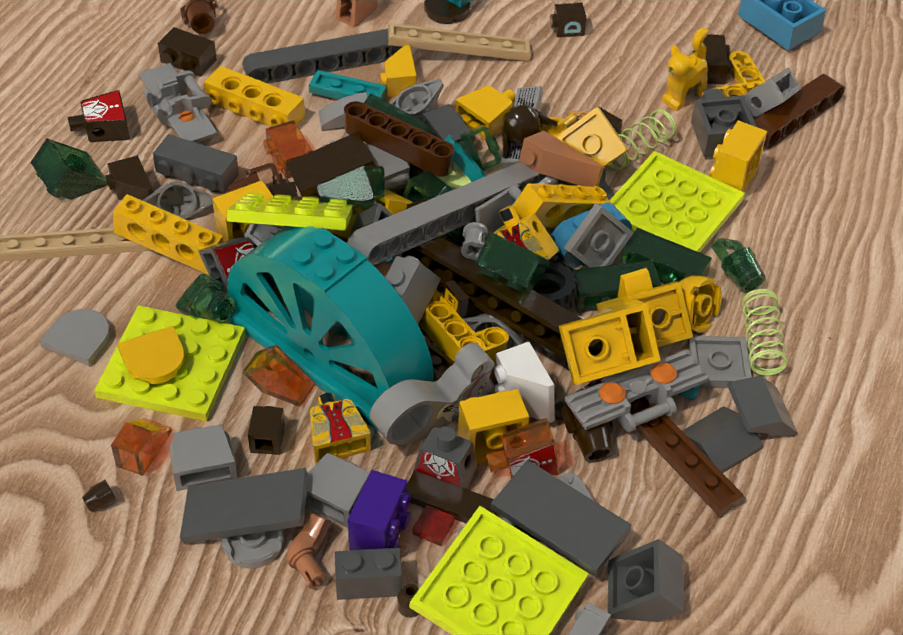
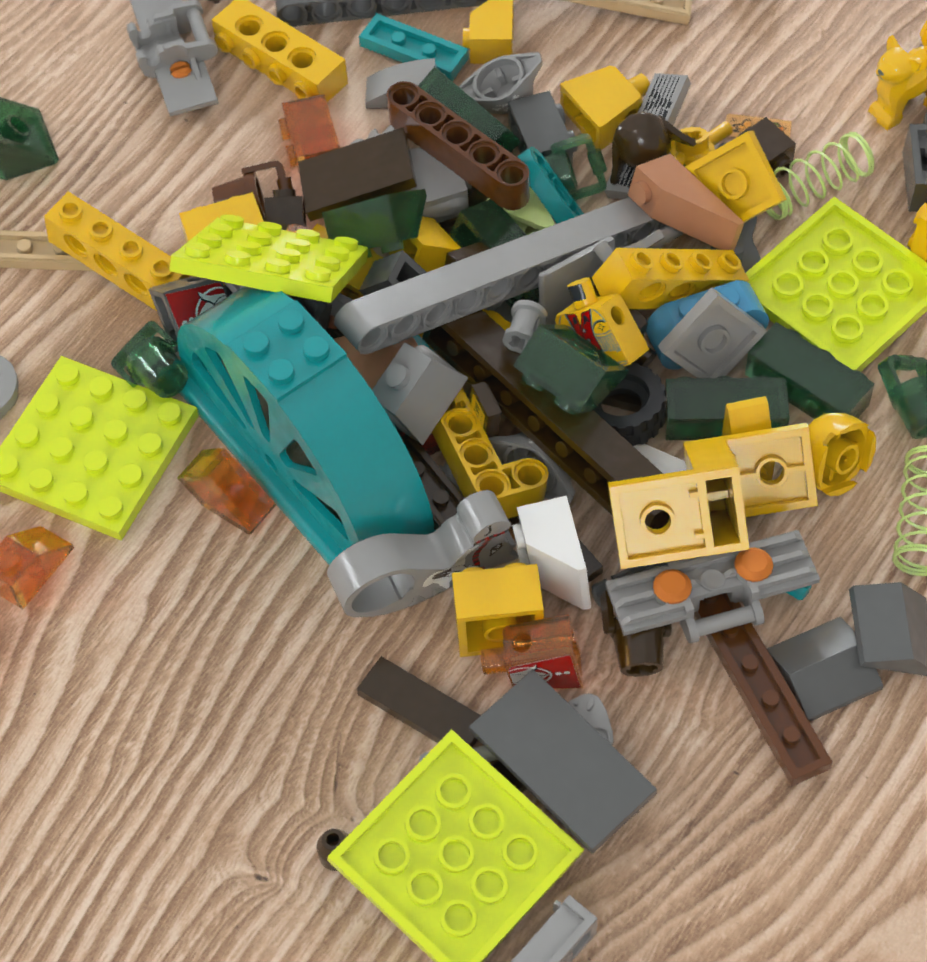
camera: 15 degrees right, 10 degrees up
(102, 118) = (67, 60): torso -> none
(129, 178) = (85, 164): dark brown slope -> none
(153, 355) = (63, 438): yellow tile -> none
(179, 199) = (141, 202): light grey hat -> none
(196, 163) = (179, 146): dark grey brick -> none
(202, 456) = (100, 597): light grey torso -> none
(245, 506) = (141, 679): dark grey tile -> none
(254, 549) = (147, 724): light grey tile -> none
(266, 430) = (194, 567): dark brown brick -> none
(306, 547) = (212, 750): nougat arm -> none
(334, 488) = (267, 669): light grey torso -> none
(338, 428) = (286, 580): torso -> none
(368, 573) = (284, 802): dark grey brick -> none
(379, 513) = (312, 725): dark purple brick -> none
(433, 525) = (390, 741): clear red tile -> none
(447, 457) = (423, 645): dark grey torso -> none
(646, 583) = (662, 876): dark grey slope -> none
(721, 359) = (852, 544): light grey tile -> none

